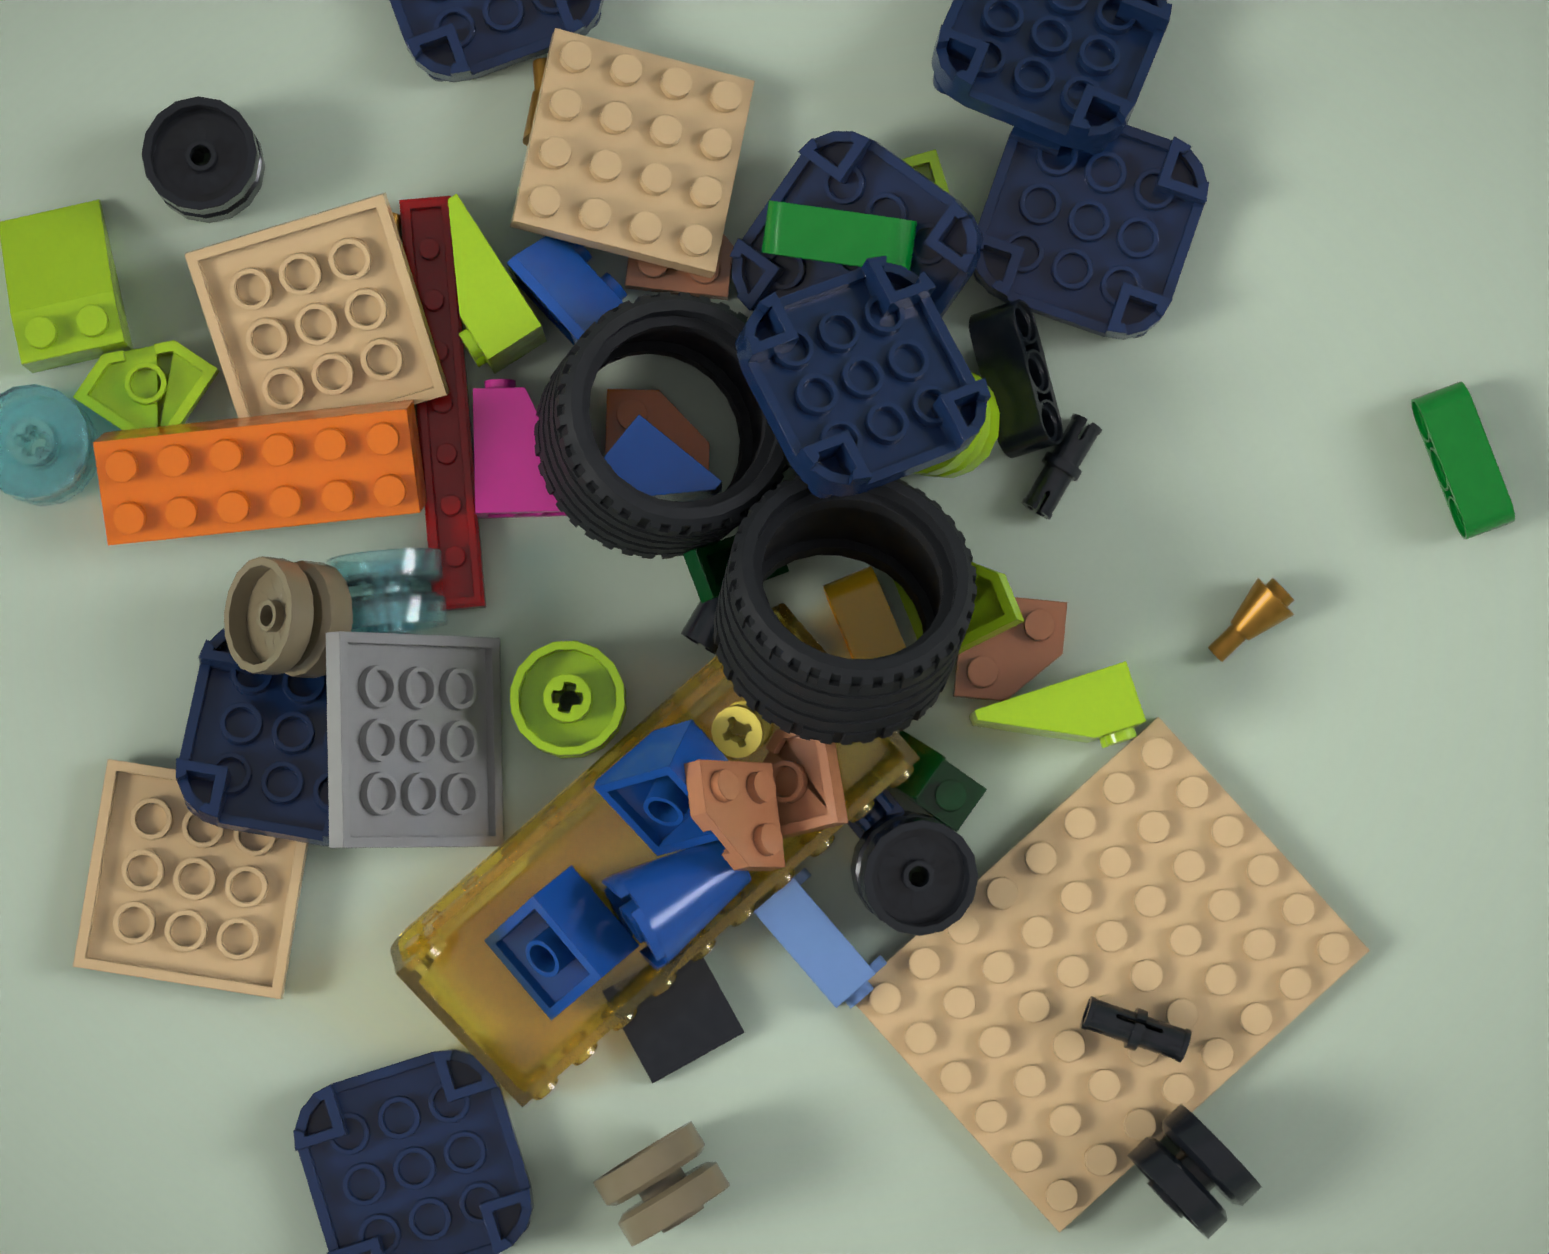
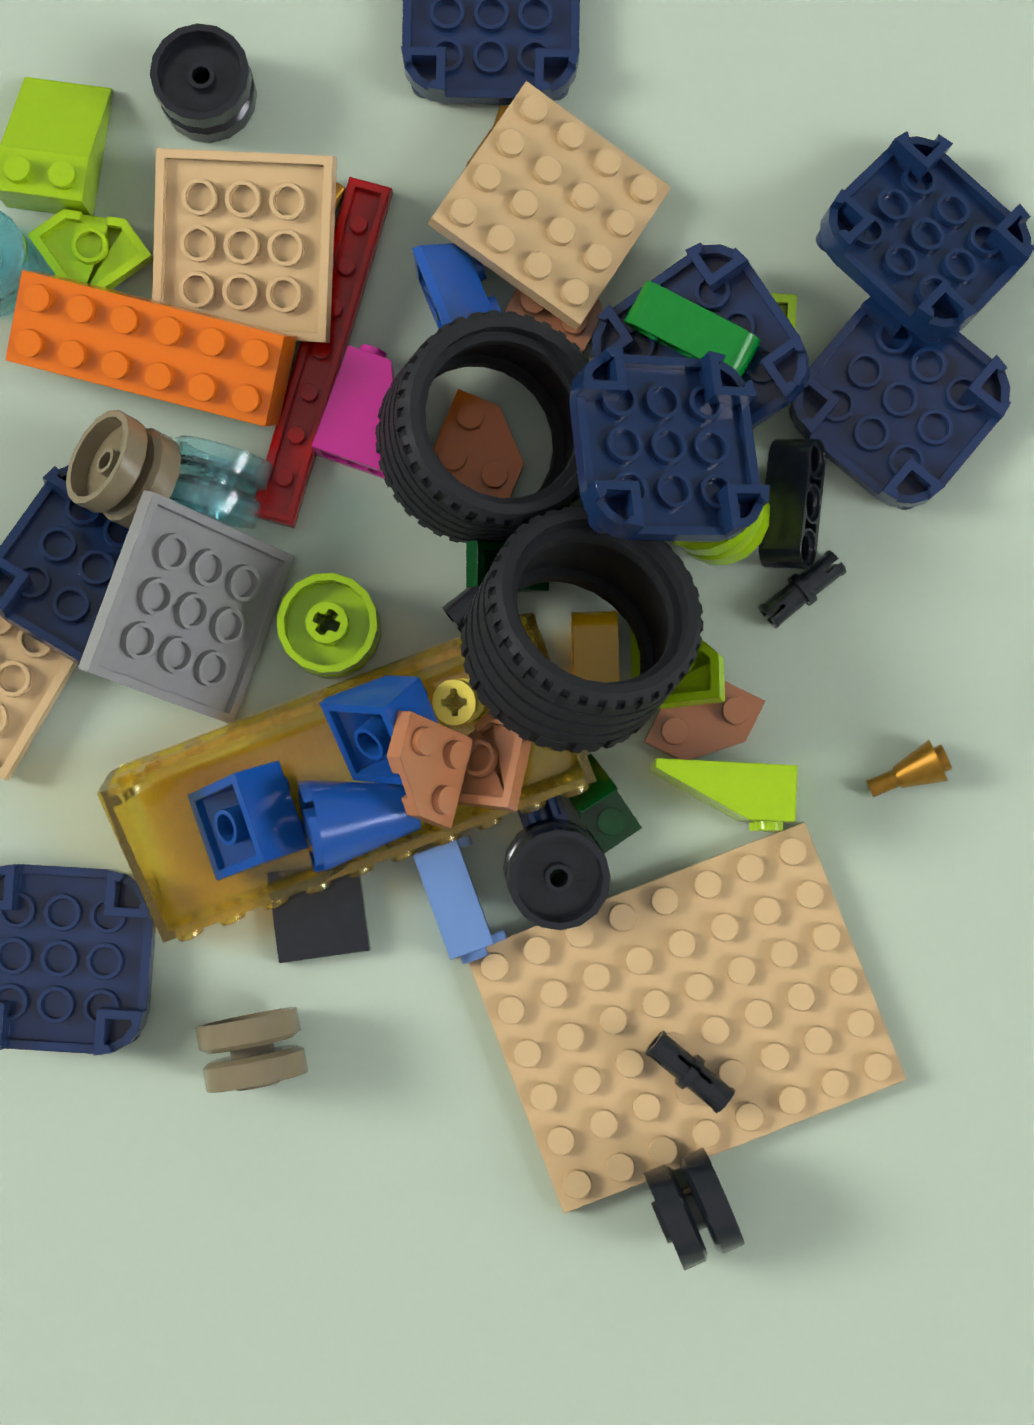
camera: 25 degrees right, 0 degrees up
(490, 305) = (388, 292): lime slope -> none
(659, 465) = (472, 457): blue slope -> none

